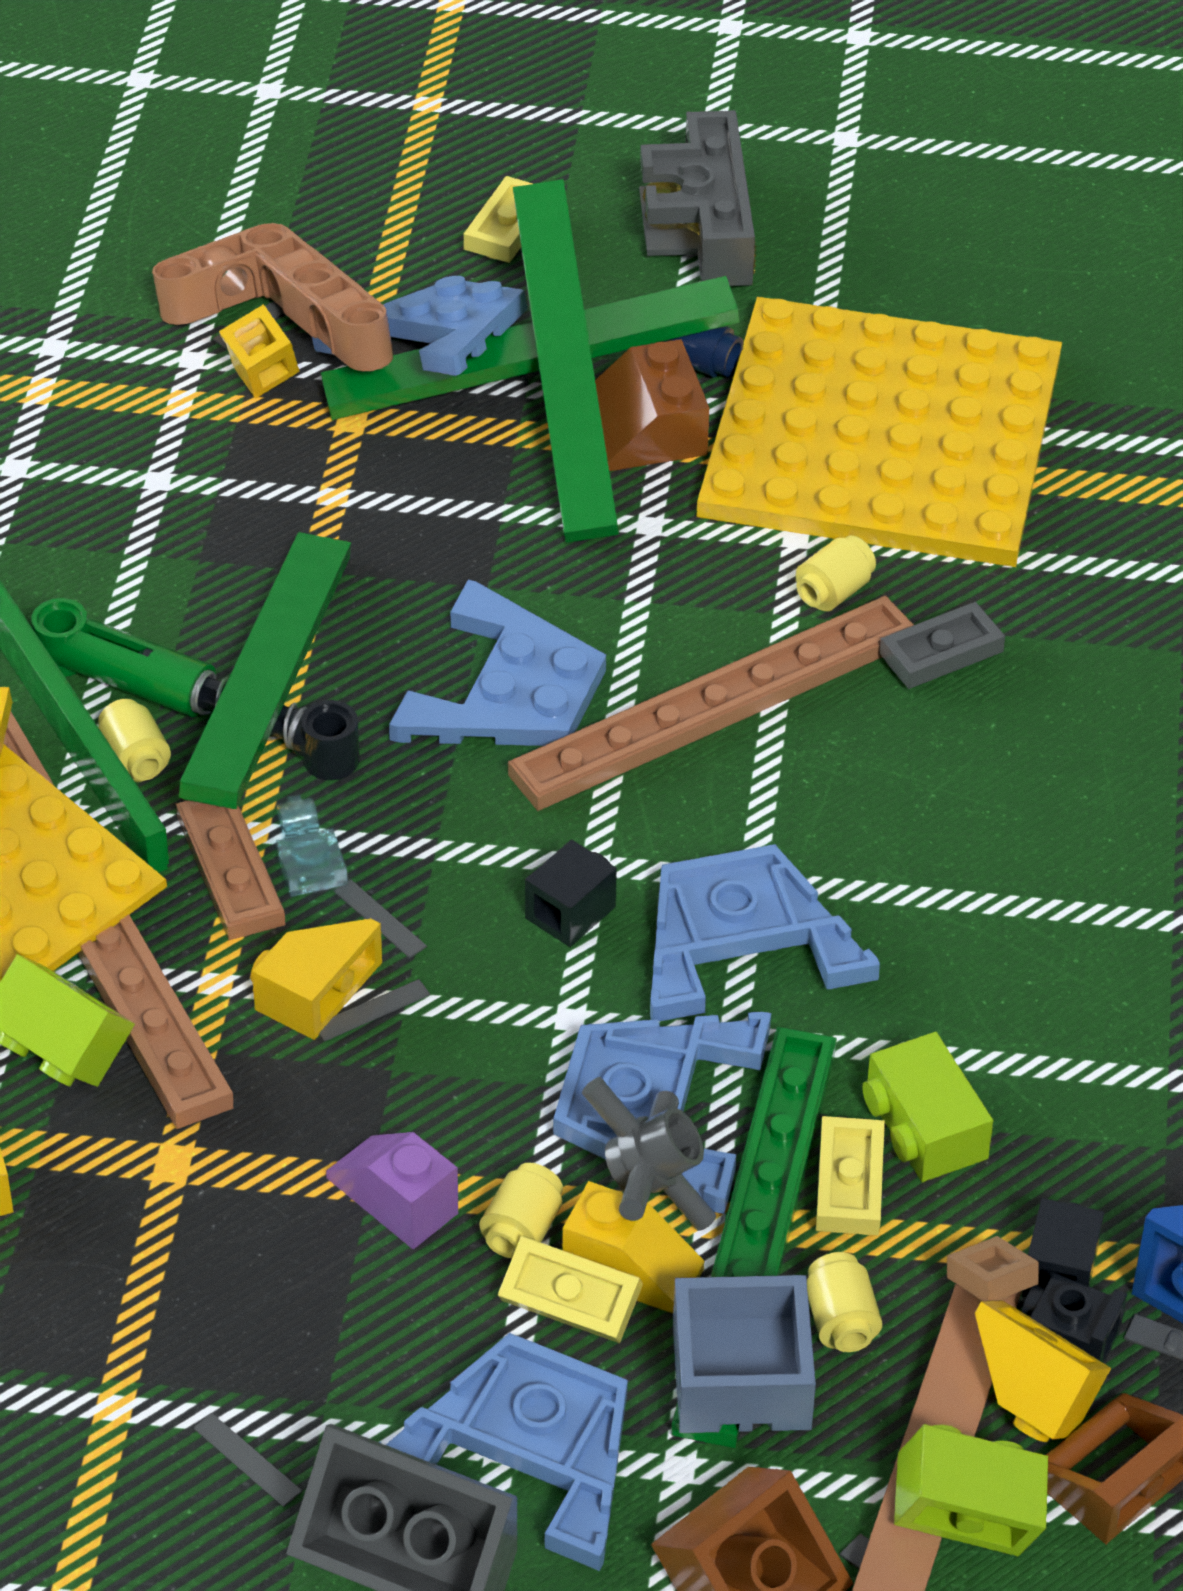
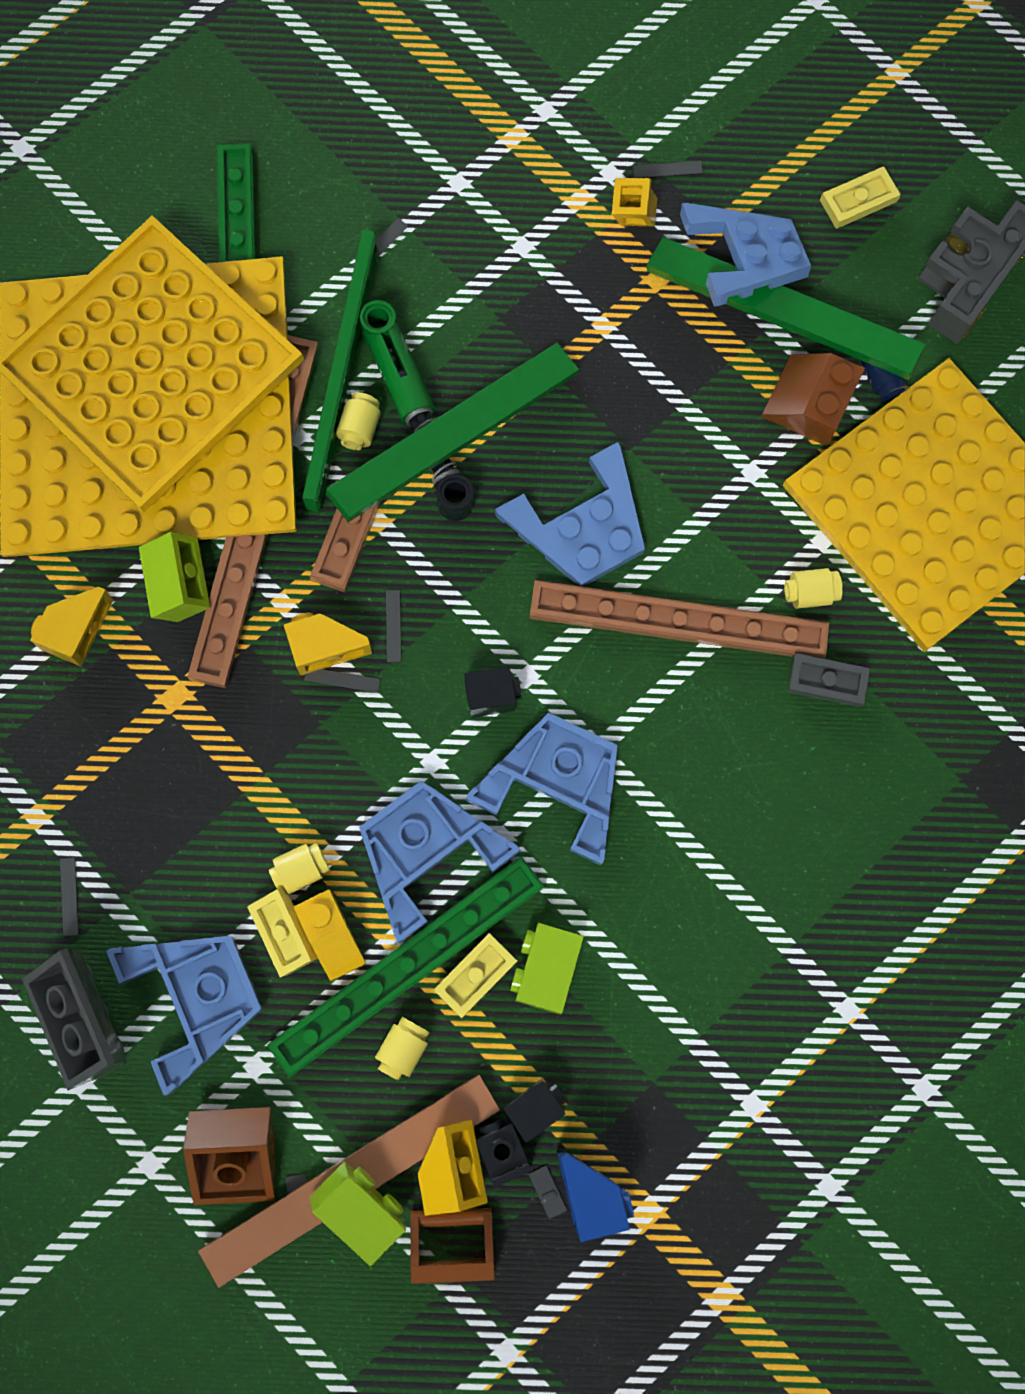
camera: 35 degrees right, 30 degrees up
(281, 267) = (695, 136): nougat beam -> none
(306, 855) = (387, 564): clear light blue plate -> none
(400, 1184) = (256, 799): medium lavender slope -> none
(565, 362) = (789, 332): green tile -> none
(651, 1153) = (372, 898): dark grey bar -> none
(743, 1353) = (316, 1048): sand blue piece -> none
(992, 1269) = (481, 1099): medium nougat plate -> none

